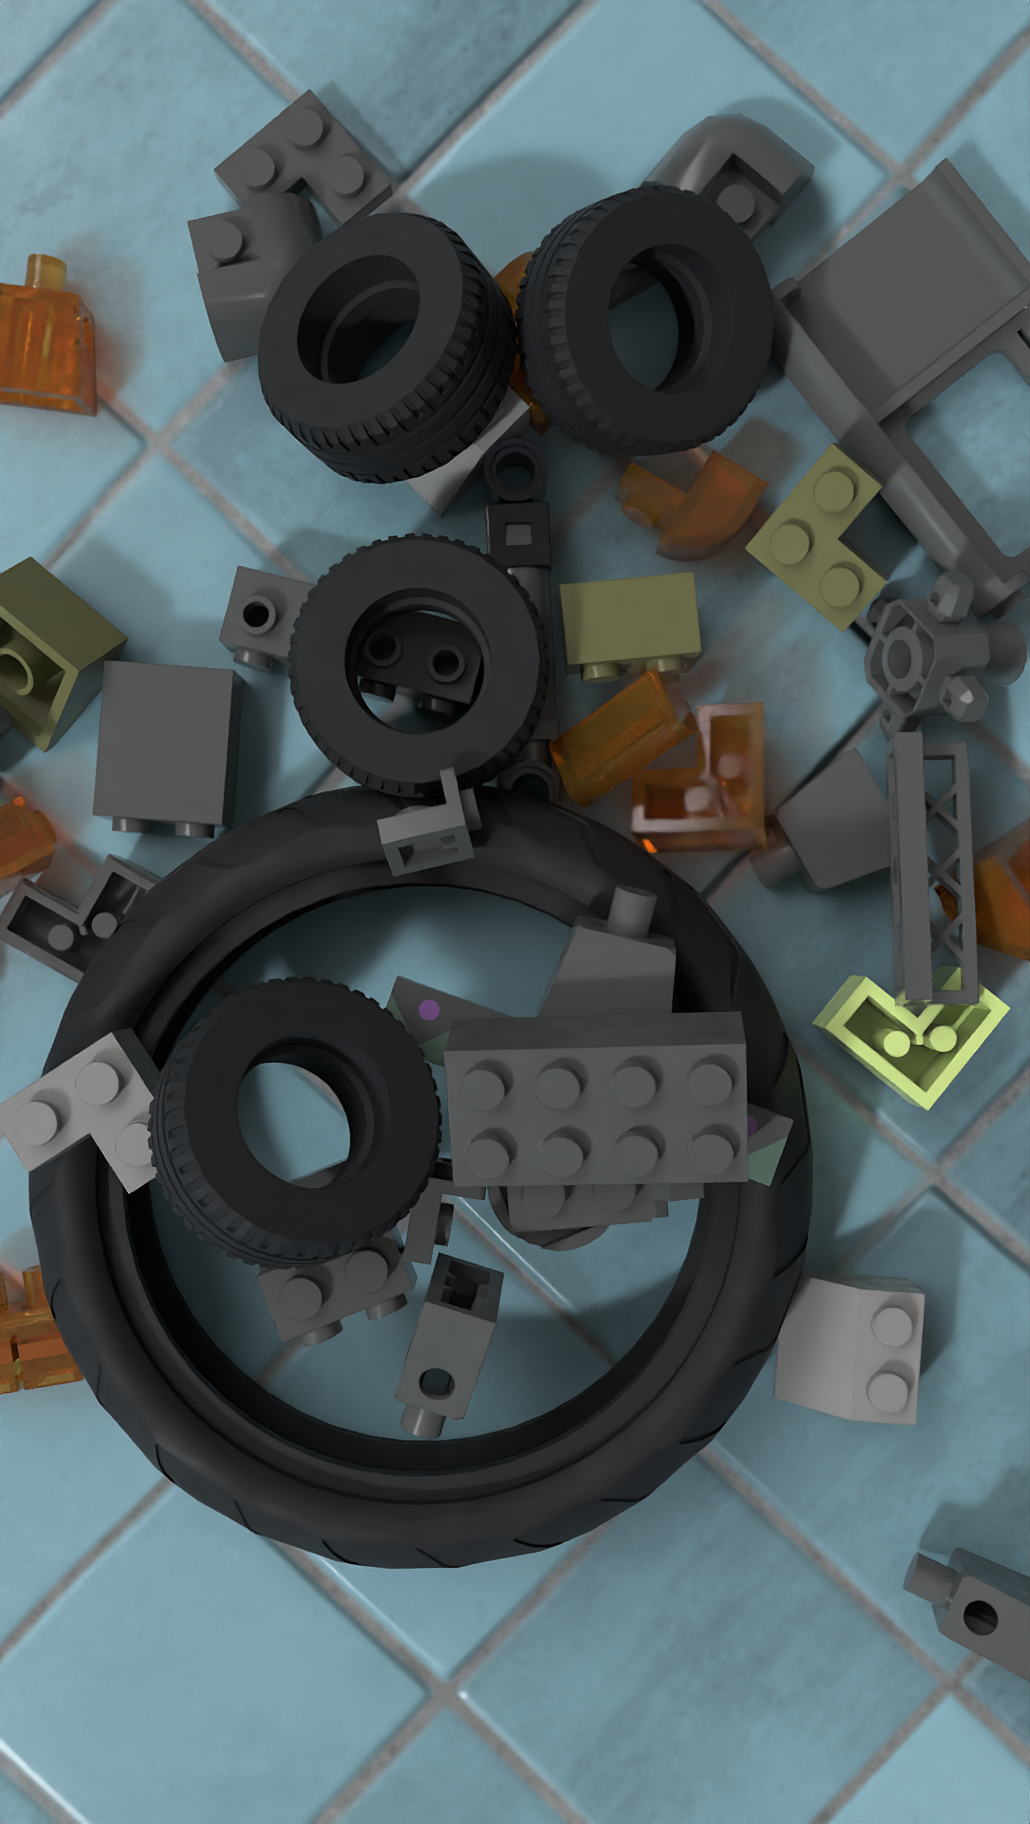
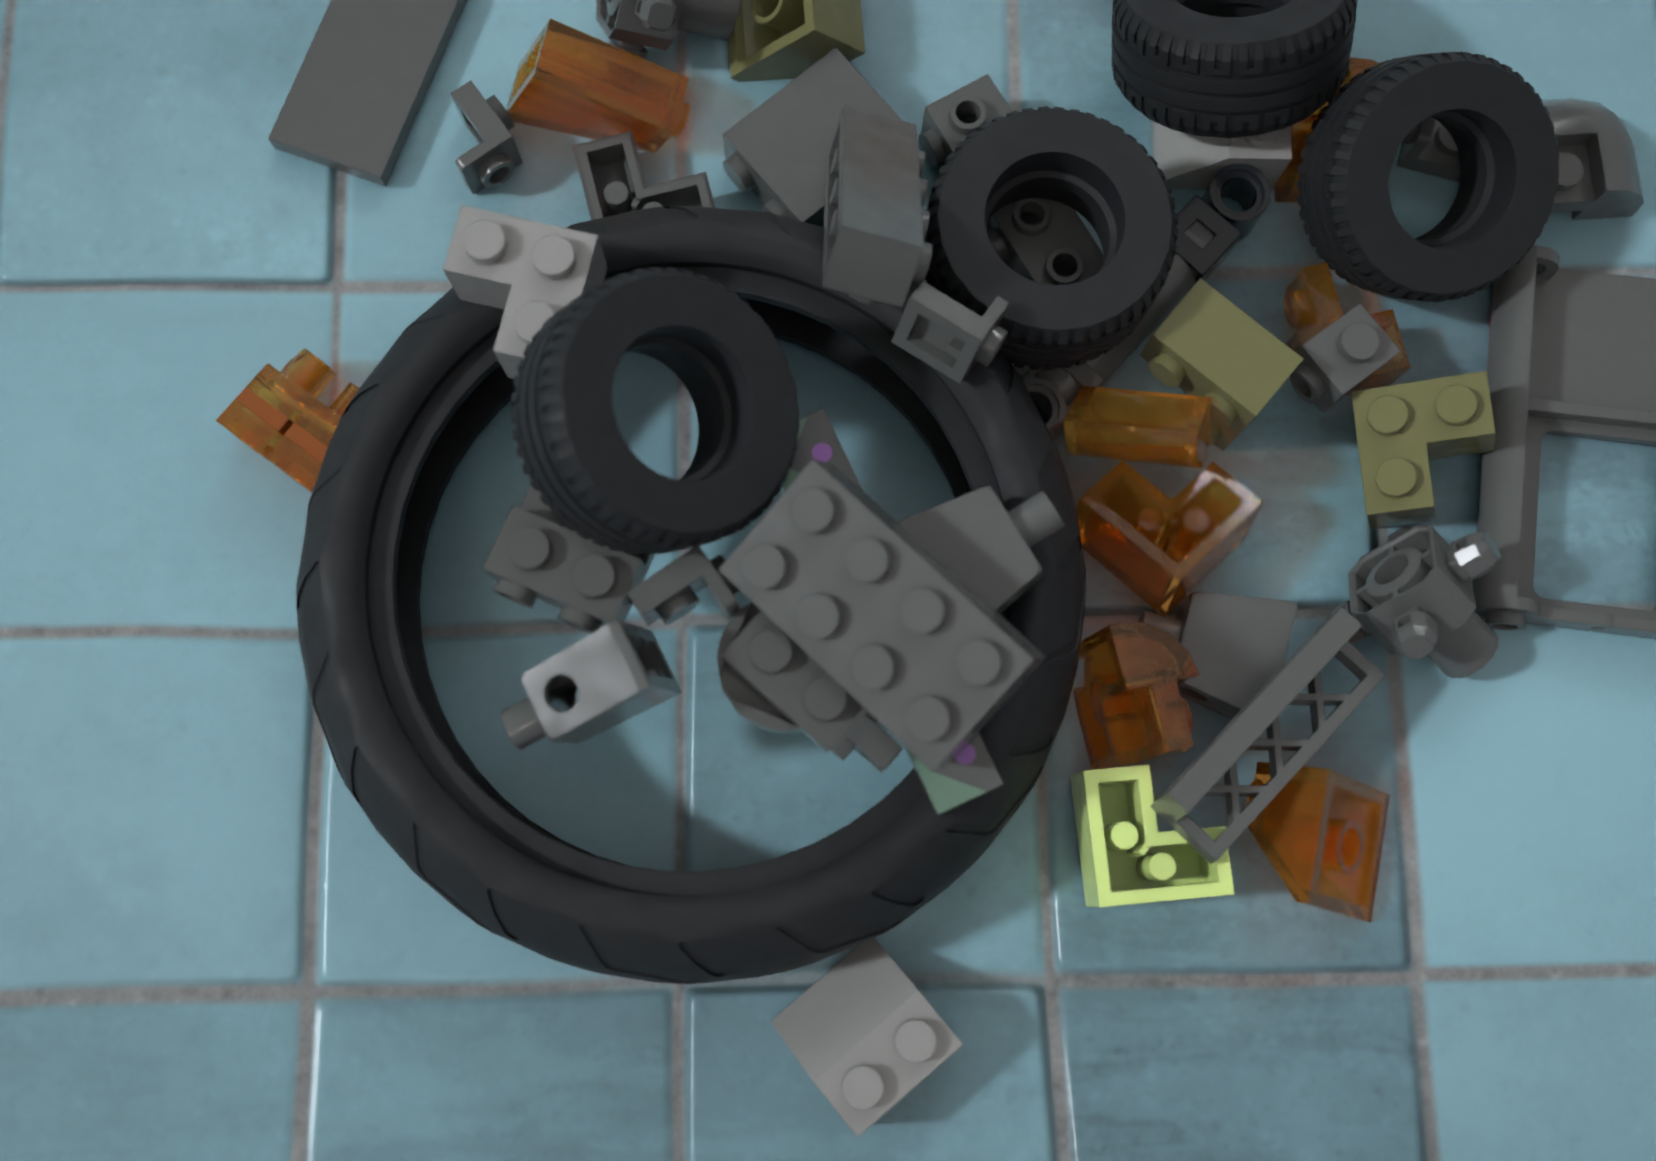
camera: 40 degrees right, 10 degrees down
(276, 785) = (874, 209): none -> dark grey brick
(713, 527) = (1341, 358): none -> dark grey bracket
(808, 935) = (1132, 696): none -> clear orange brick

